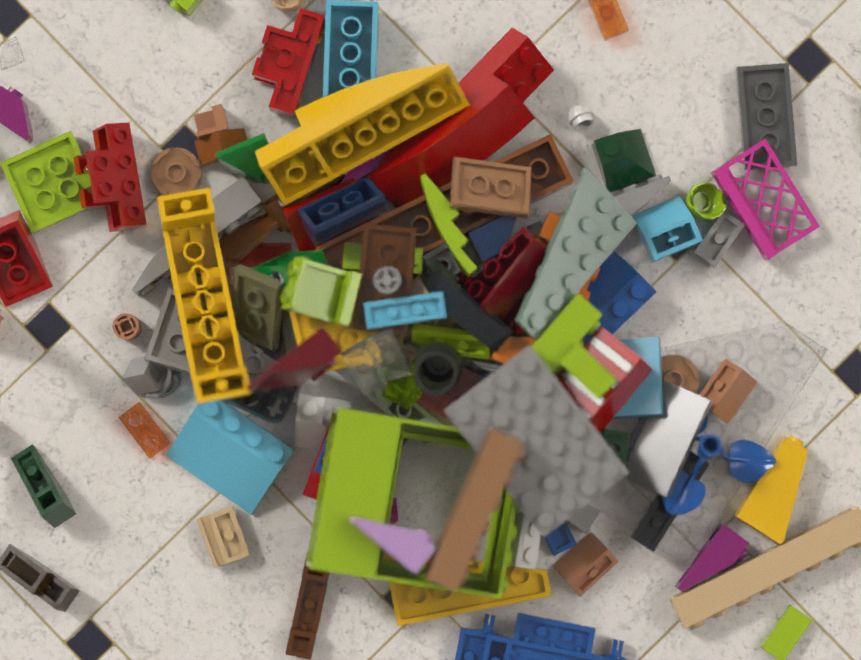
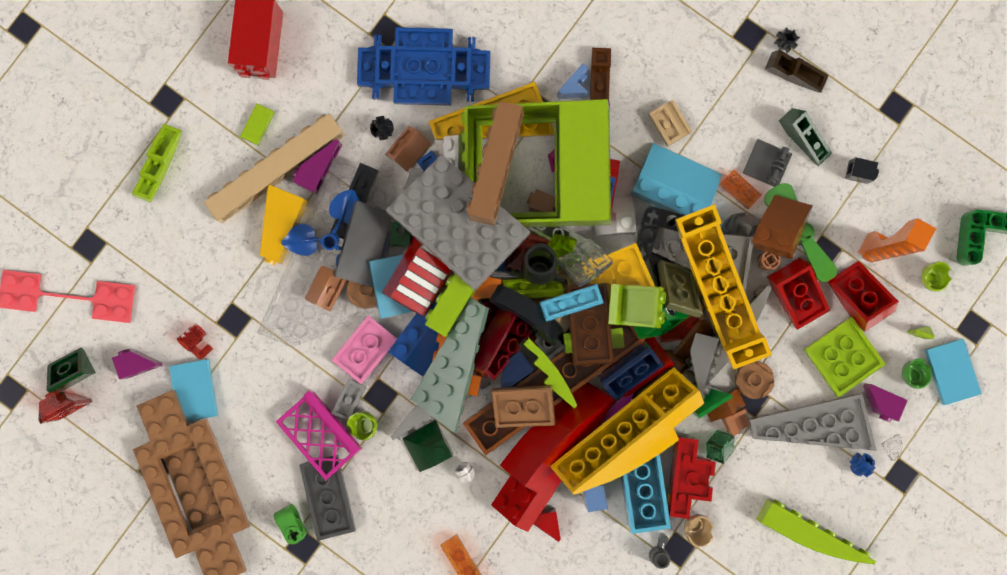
camera: 175 degrees right, 0 degrees up
(35, 622) = (791, 36): none -> black gear
(58, 38) = (862, 464): none -> blue gear
(90, 98) = (828, 423): none -> light grey wing
(91, 397) = (820, 262): none -> bright green piece
(95, 276) = (799, 292): none -> red slope
(101, 459) = (767, 163): none -> dark grey hinge
(104, 367) = (781, 226): none -> dark orange slope
(113, 177) = (802, 367): red piece -> none
(239, 93) = (720, 446): none -> clear green panel
(242, 210) = (703, 355): none -> light grey slope
(304, 362) = (639, 250): dark red slope -> none
(349, 607) = (571, 88): none -> medium blue slope
(383, 281) = (592, 320): light grey wheel -> none
(403, 544) = (547, 130): lavender slope -> none
(417, 53) = (595, 499): none -> medium blue slope
(418, 457) = (541, 201): none -> nougat brick
(482, 33) = (548, 522): none -> red slope
(587, 370) = (428, 279): lime tile -> none
(616, 597) = (381, 128): none -> black gear
(667, 229) = (387, 400): medium azure slope -> none
(687, 301) = (364, 349): none -> bright pink plate
(820, 94) = (289, 522): none -> bright green piece

